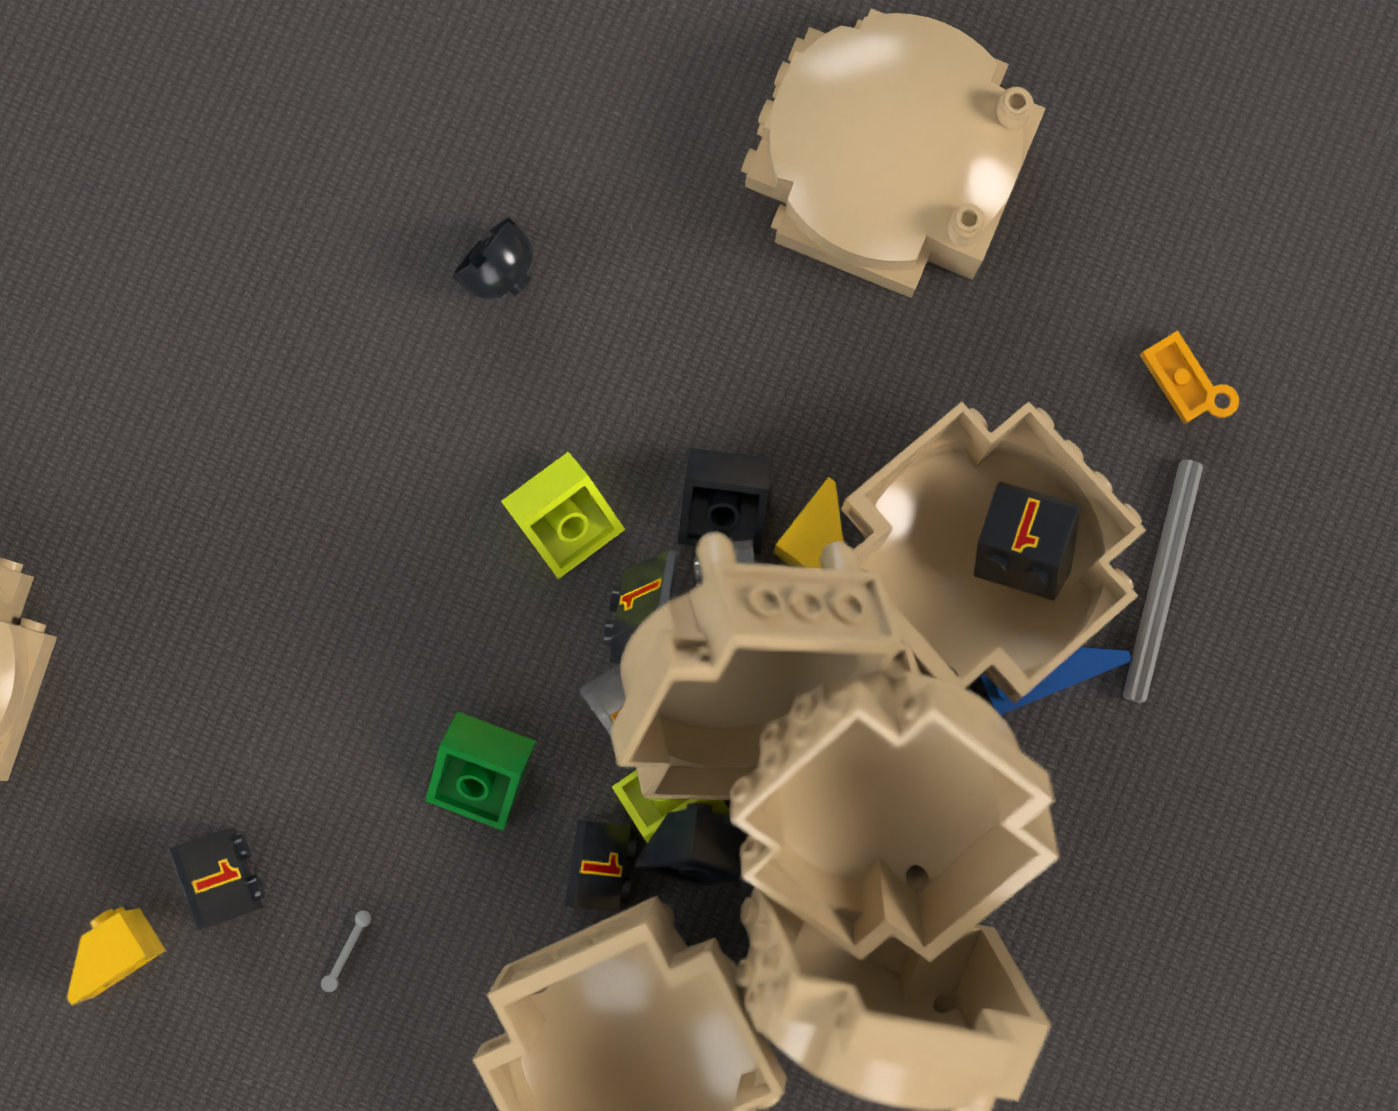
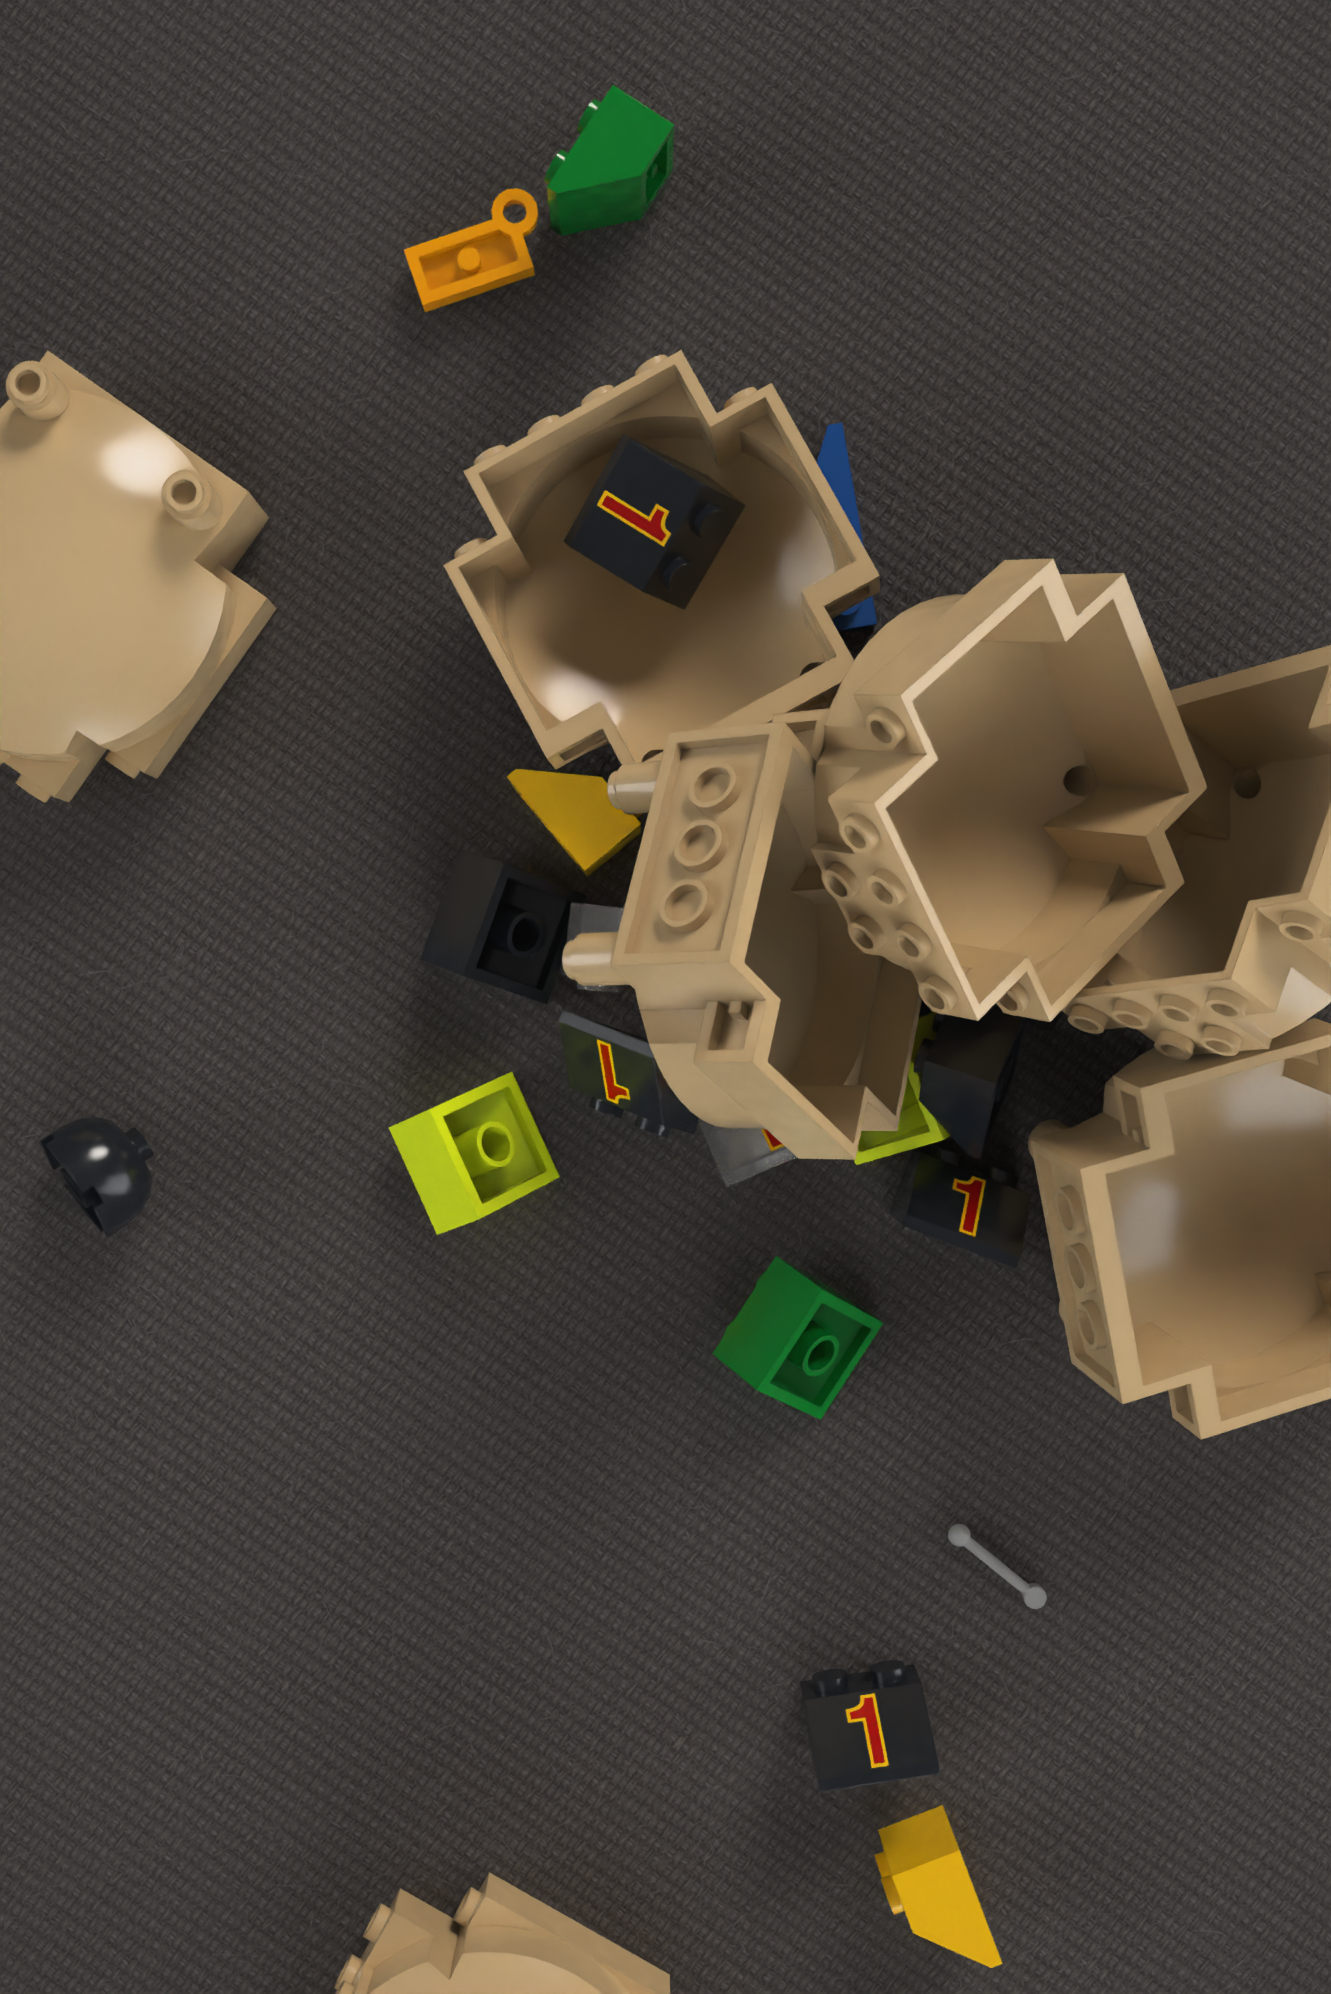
camera: 80 degrees left, 5 degrees up
(1162, 581) = (741, 355): light grey axle -> none
(1267, 460) = (612, 166): none -> green slope

